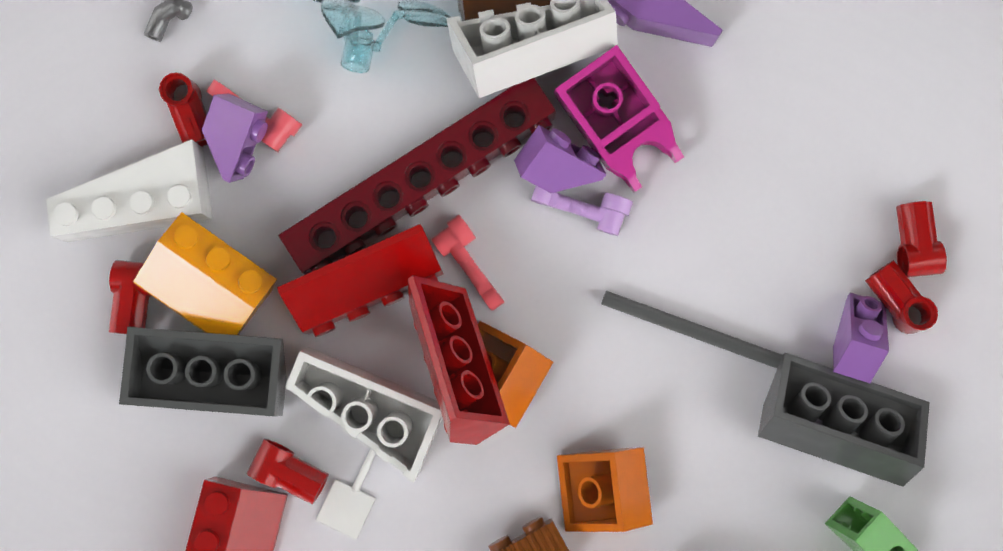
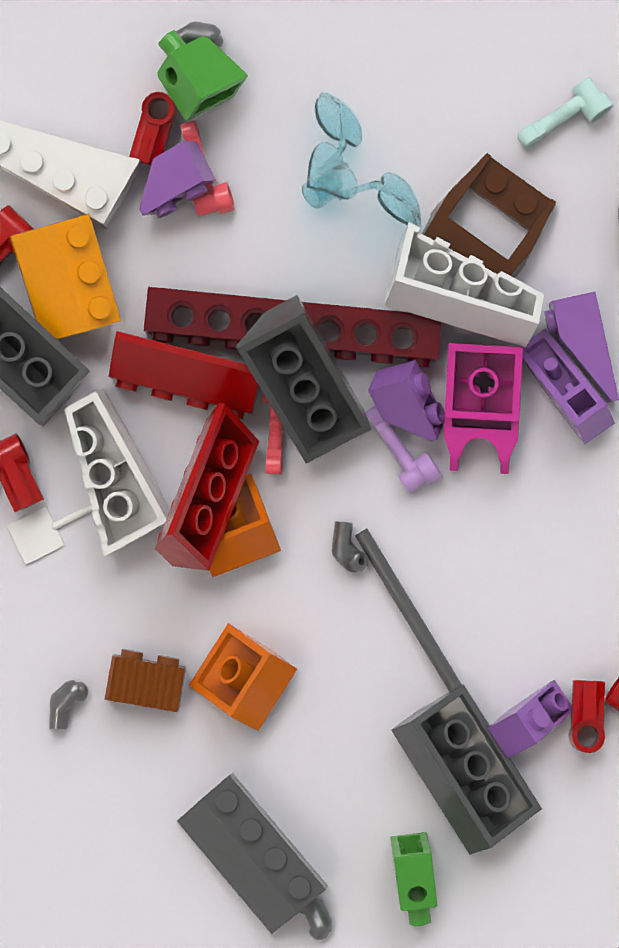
camera: 40 degrees right, 5 degrees up
(188, 39) = (197, 74): none -> bright green torso
(461, 208) = (302, 380): none -> dark grey slope
(604, 322) = (345, 551): none -> flat silver arm
(677, 56) = (567, 387): none -> medium lavender slope

